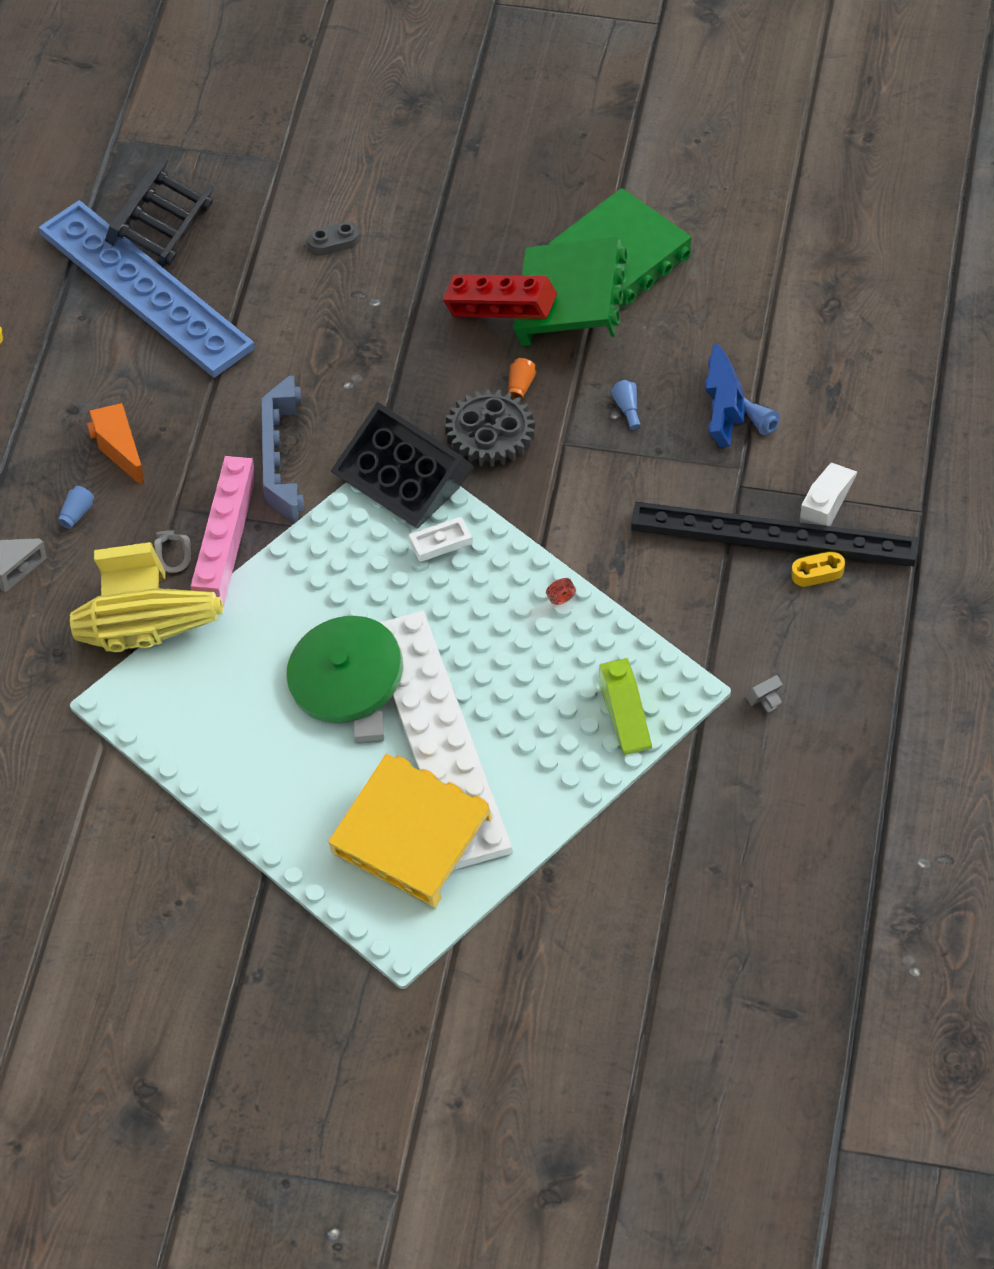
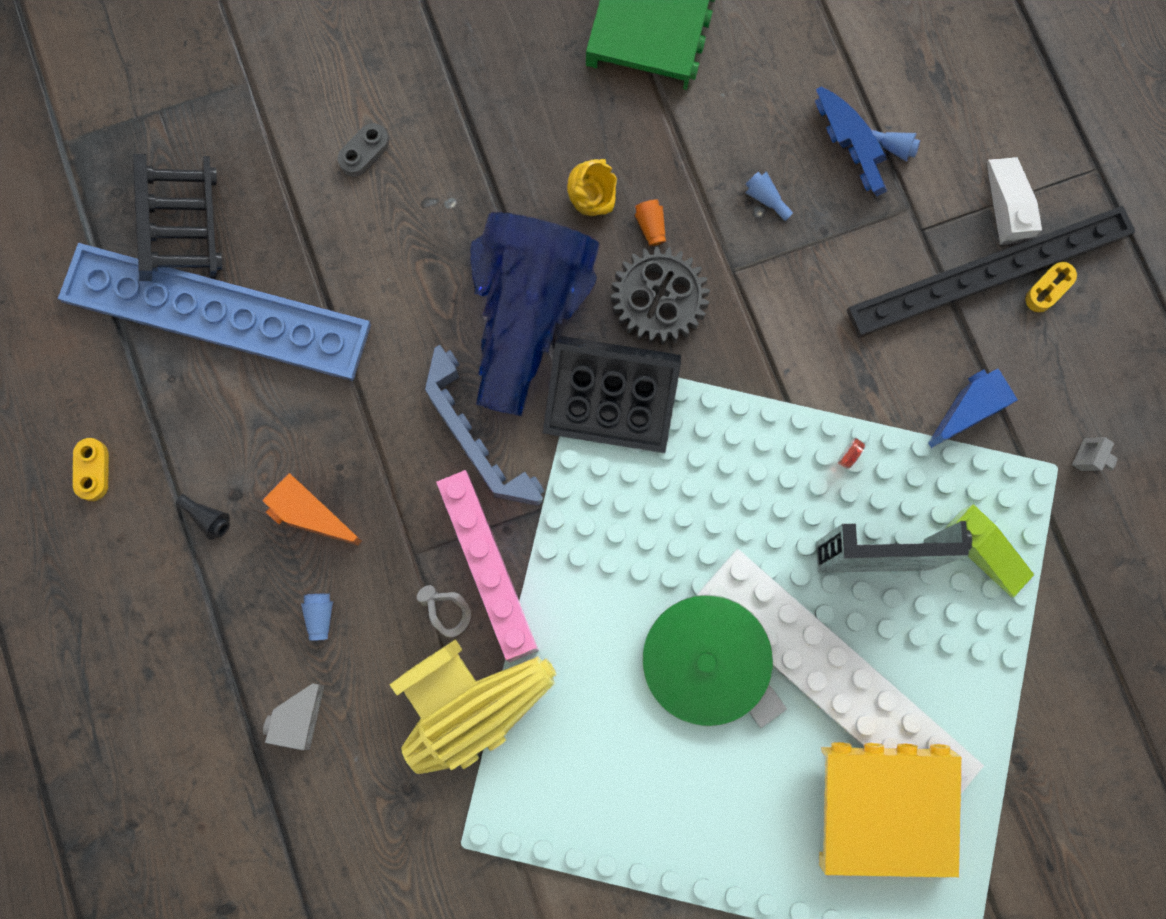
camera: 35 degrees left, 25 degrees up
(43, 413) = (209, 520): none -> black cone
(391, 358) = (532, 281): none -> clear blue cone
(440, 539) = (700, 456): white plate -> none
(488, 332) = (592, 187): none -> yellow hair
(500, 296) = (584, 140): red brick -> none
(530, 644) = (840, 551): none -> black panel
(586, 283) = (643, 95): green panel -> none
(688, 611) = (975, 403): none -> blue slope

